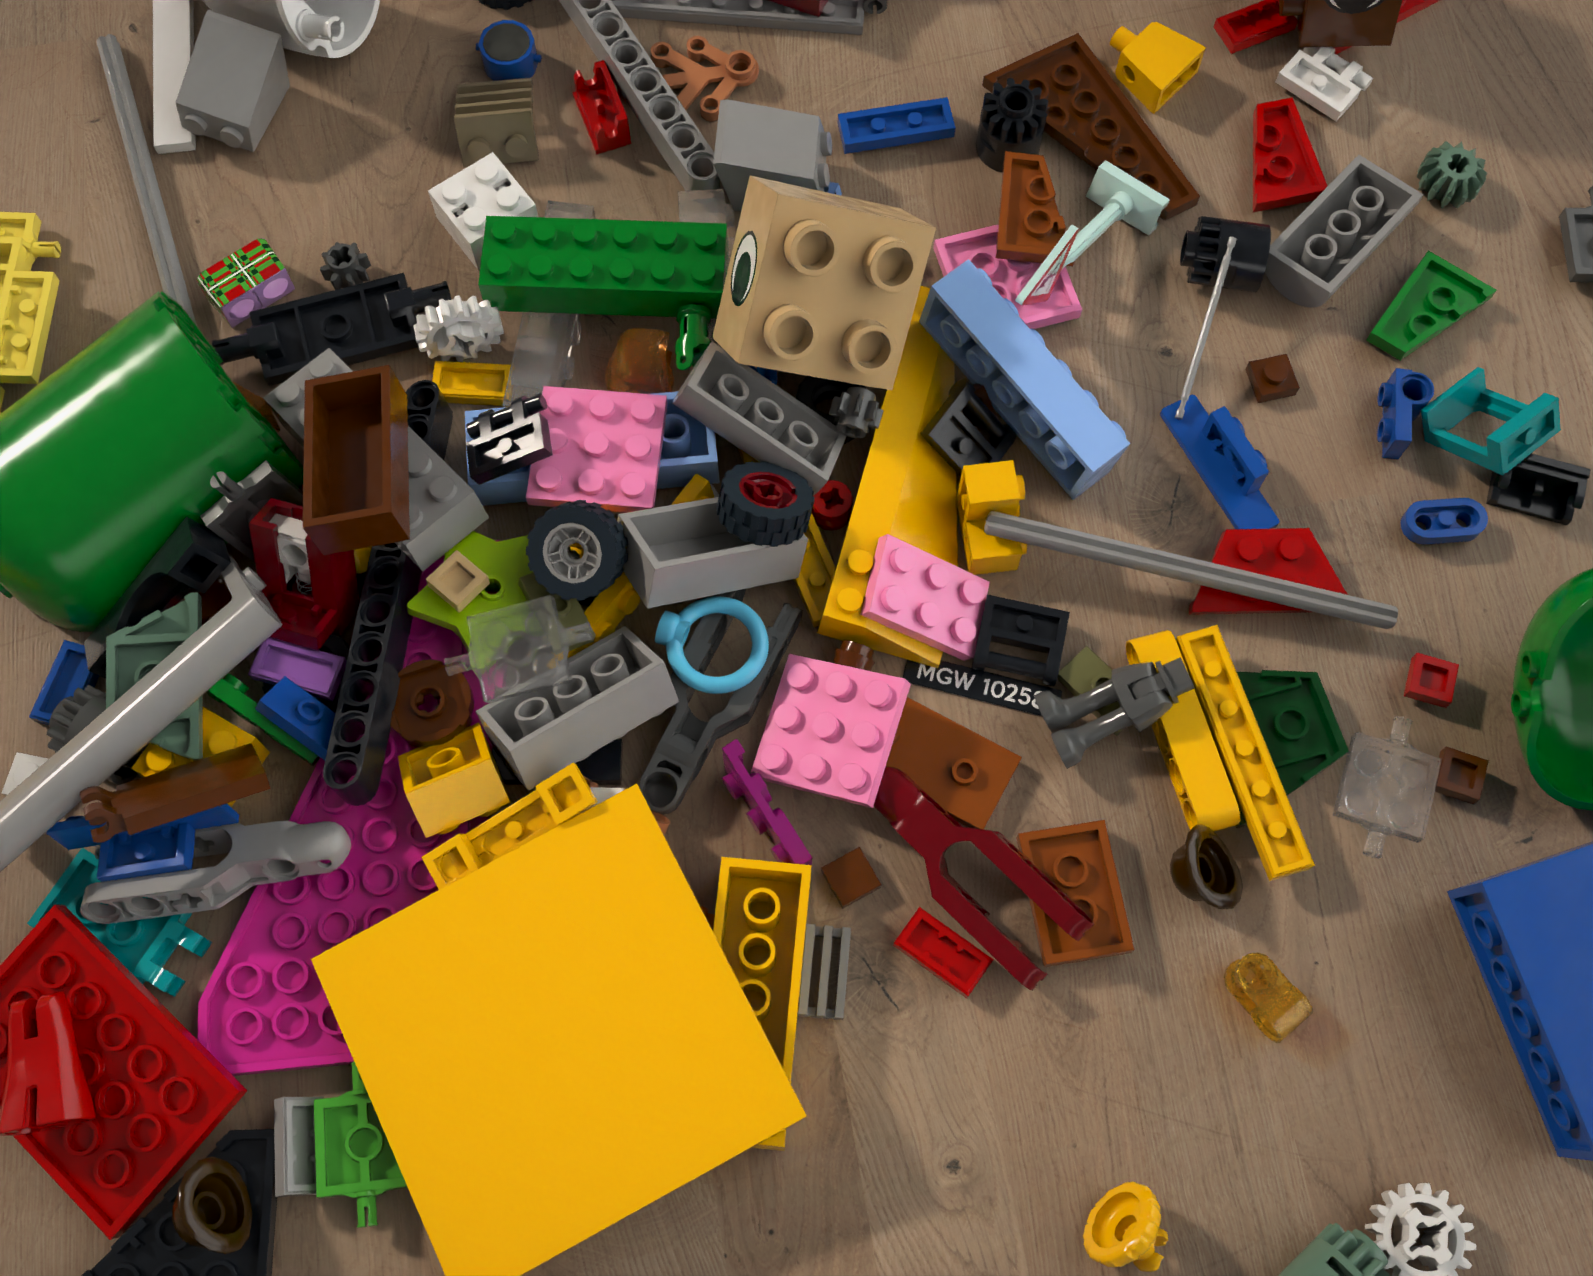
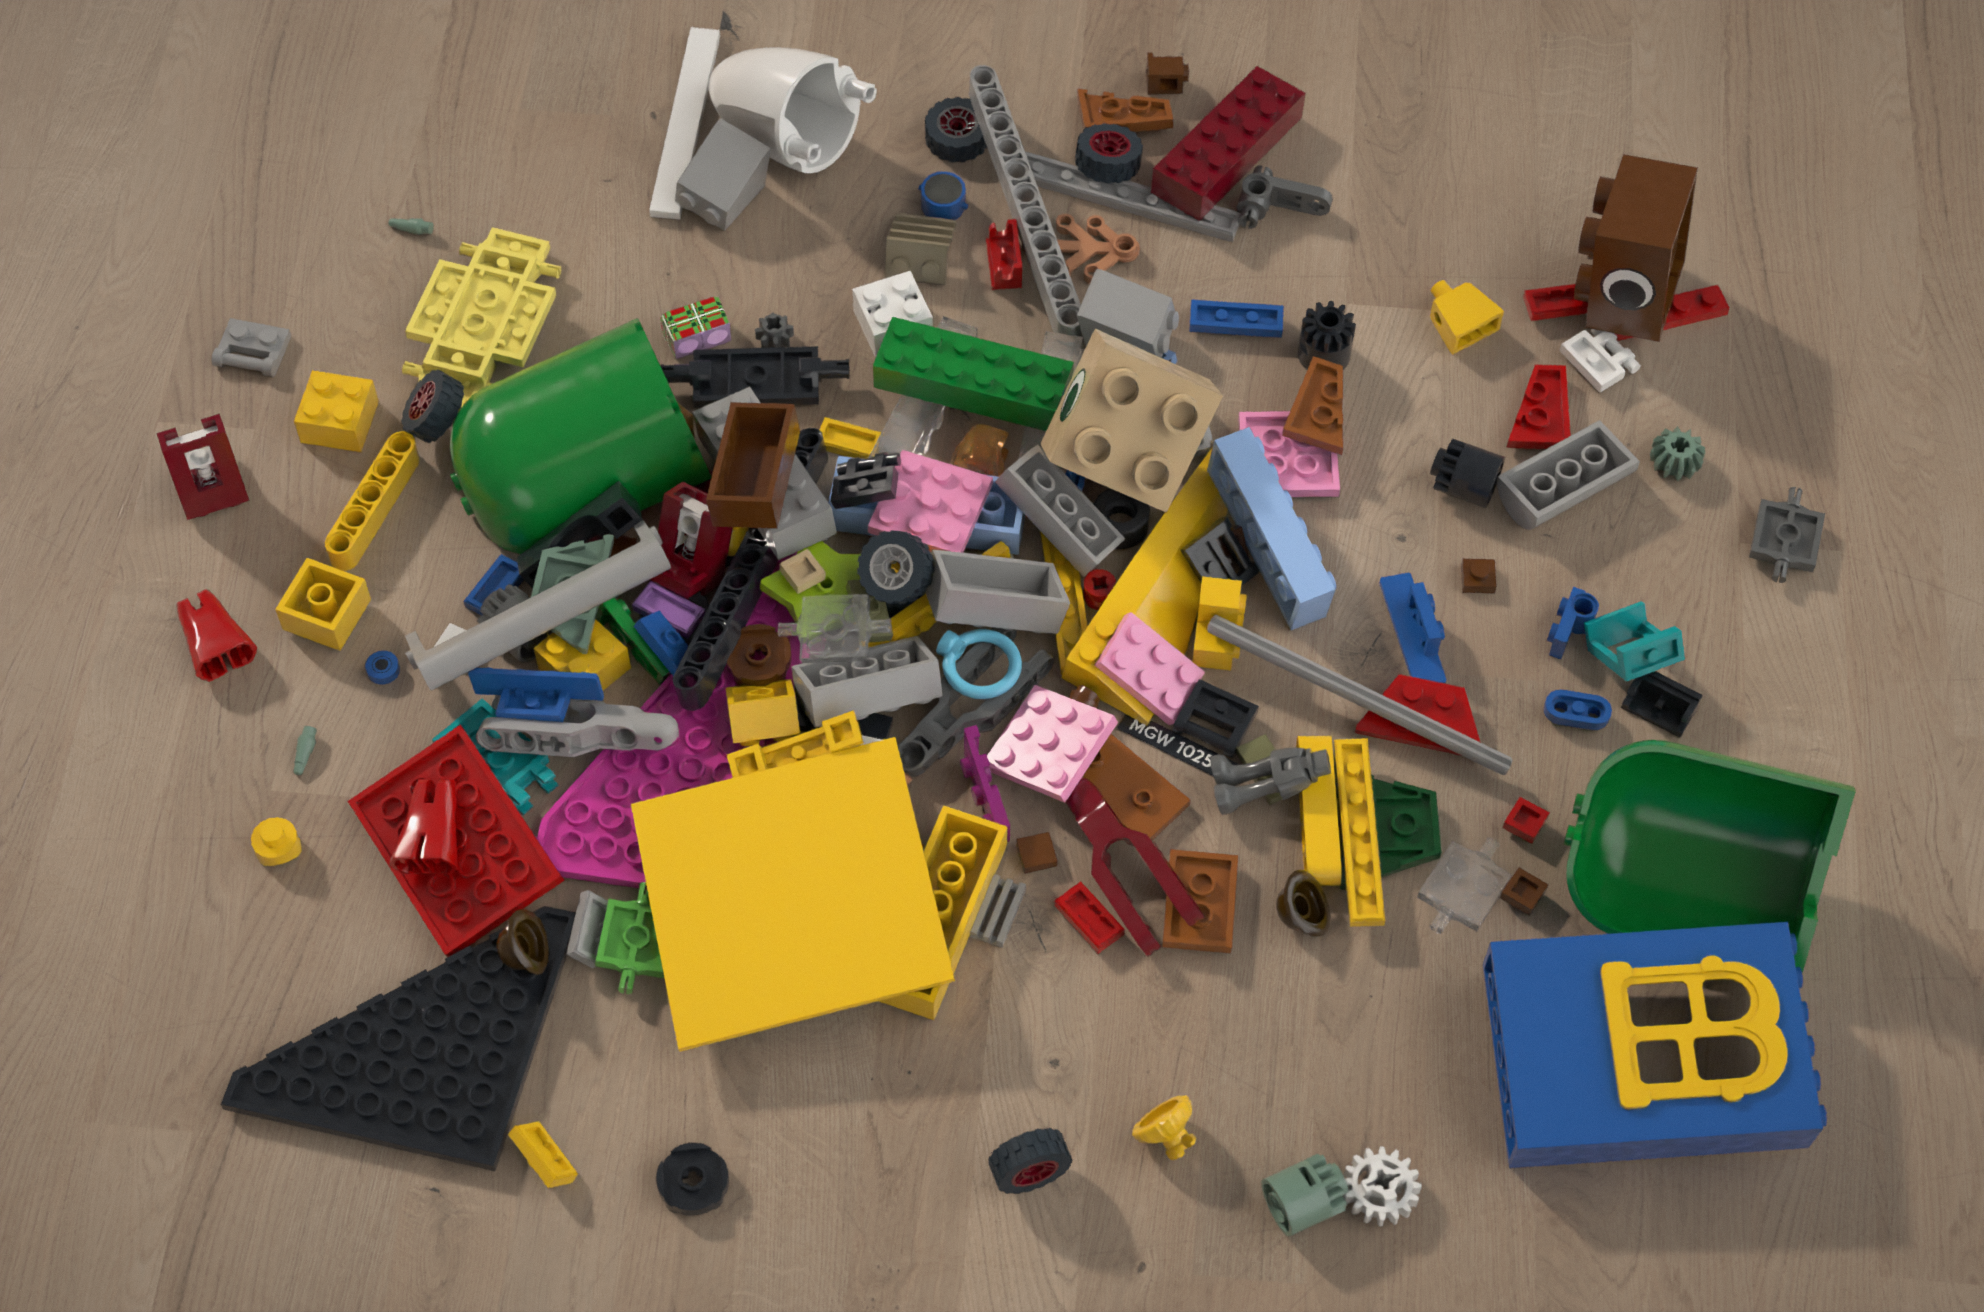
camera: 15 degrees right, 10 degrees down
(143, 172) = (636, 222): light grey axle -> none
(174, 793) = (568, 663): reddish brown tile -> none
(242, 502) = (651, 487): dark grey plate -> none
(458, 328) = (849, 396): white gear -> none
(693, 334) = (1027, 436): green piece -> none
(765, 504) = (1044, 569): black wheel -> none
(856, 412) = (1134, 522): dark grey gear -> none
(1097, 119) = (1400, 351): reddish brown wing -> none
(1122, 199) = (1398, 412): light aqua piece -> none
(1205, 328) = (1428, 525): light grey piece -> none
(1270, 999) = (1323, 1007): clear yellow piece -> none
(1427, 305) = (1622, 548): green wing -> none

